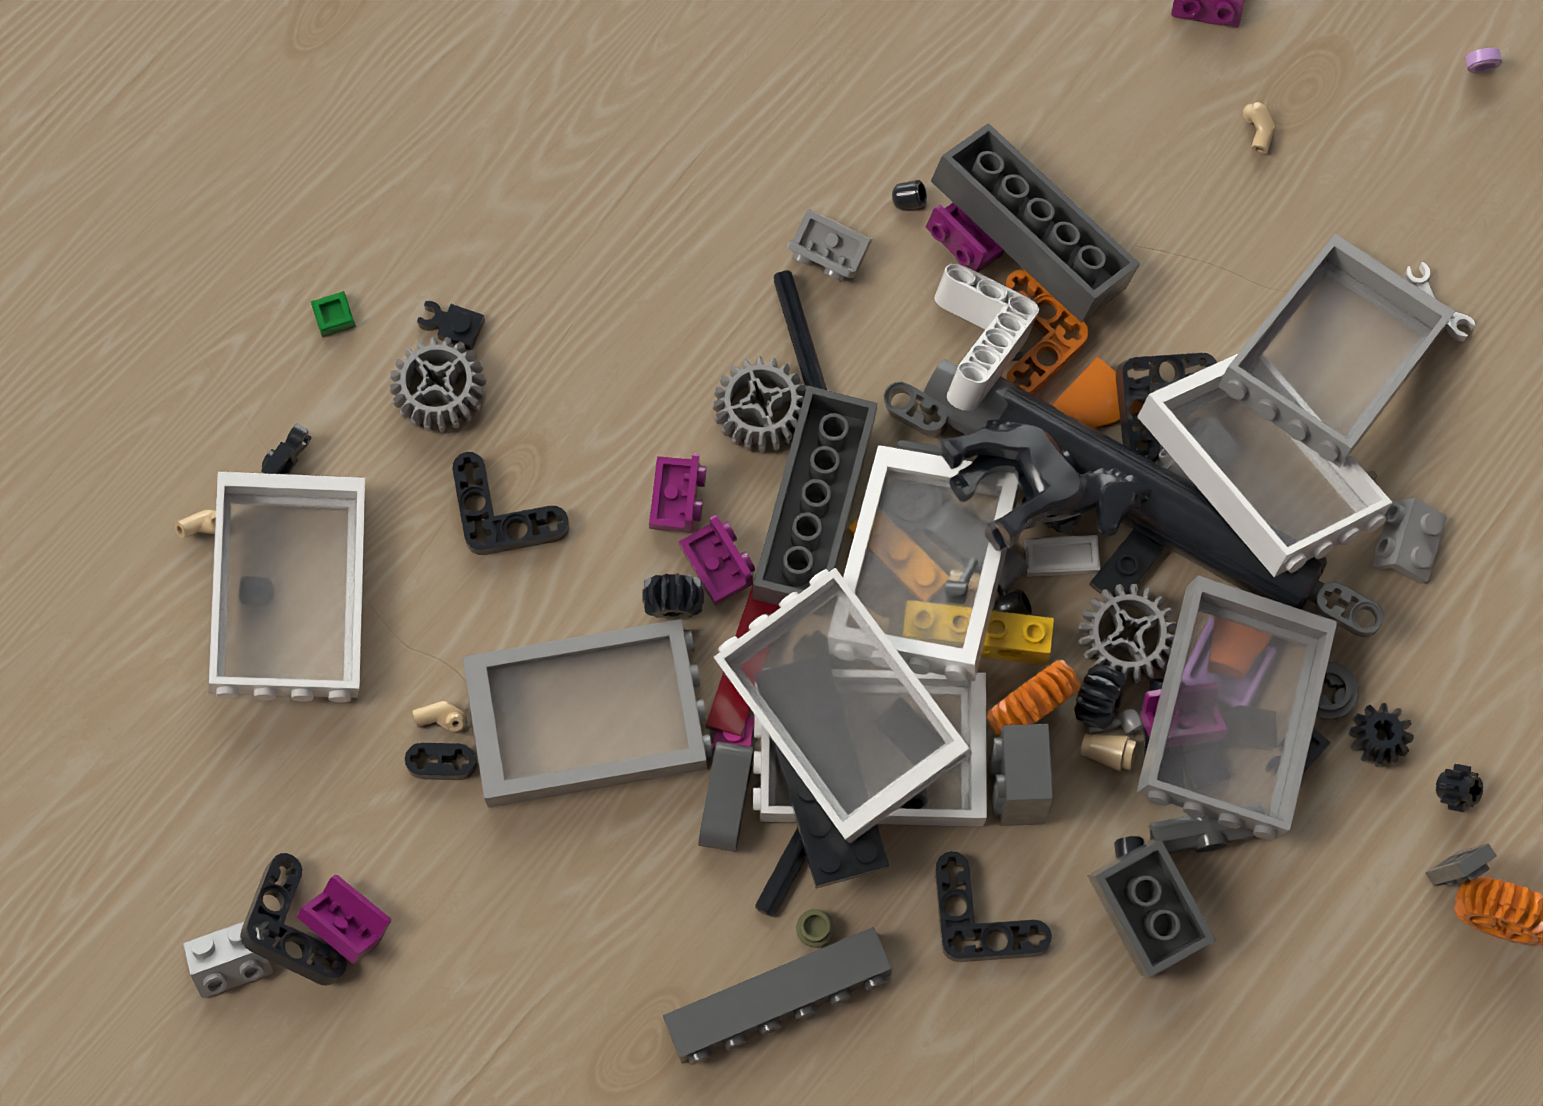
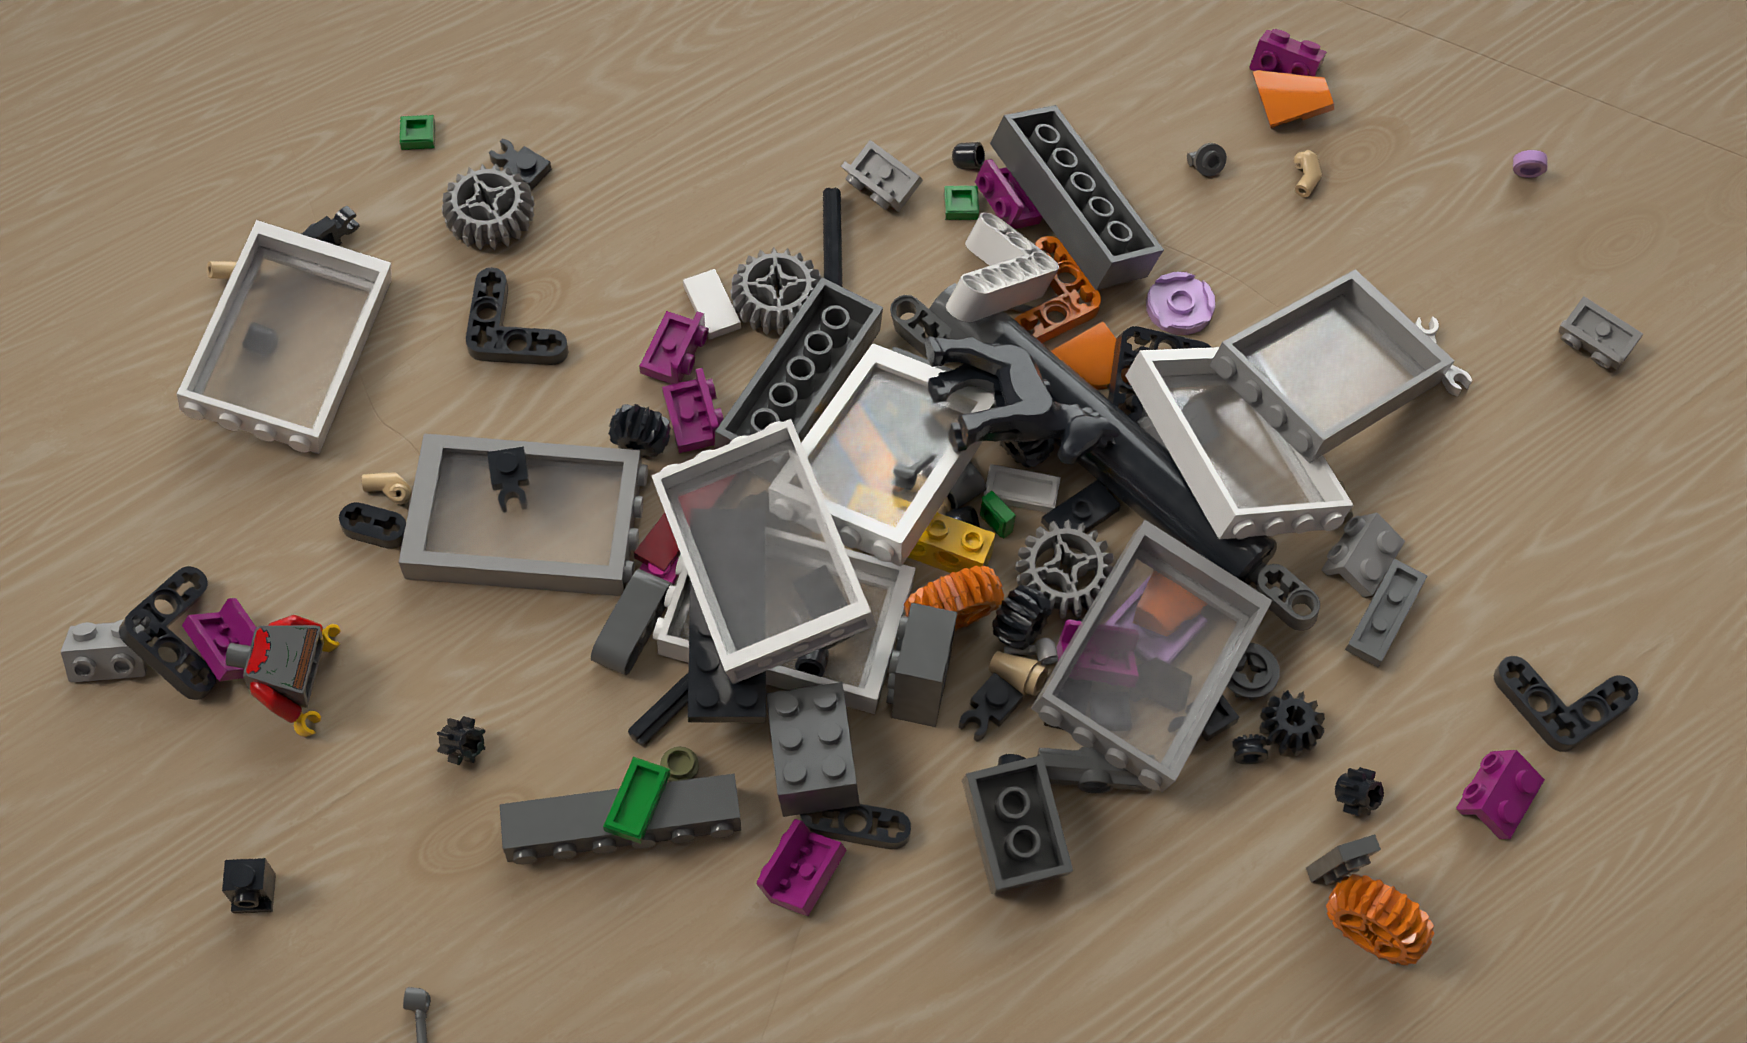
camera: 10 degrees right, 10 degrees down
(412, 933) = (284, 665): none -> torso
(561, 678) = (508, 474): none -> black plate
(603, 960) = (461, 740): none -> black gear
(697, 432) = (711, 299): none -> white tile
(791, 978) = (637, 800): none -> green tile
(917, 251) = (961, 202): none -> green tile
(940, 883) = (812, 749): none -> dark grey brick
(960, 1000) = (800, 868): none -> magenta bracket
(1047, 592) = (997, 514): none -> green tile
(1093, 787) = (991, 703): none -> black plate
(1155, 138) = (1208, 159): none -> dark grey plate
(1167, 310) = (1180, 303): none -> lavender tile
(1223, 41) = (1292, 96): none -> orange slope
(1348, 772) = (1250, 749): none -> black bush
(1445, 596) = (1386, 613): none -> dark grey plate

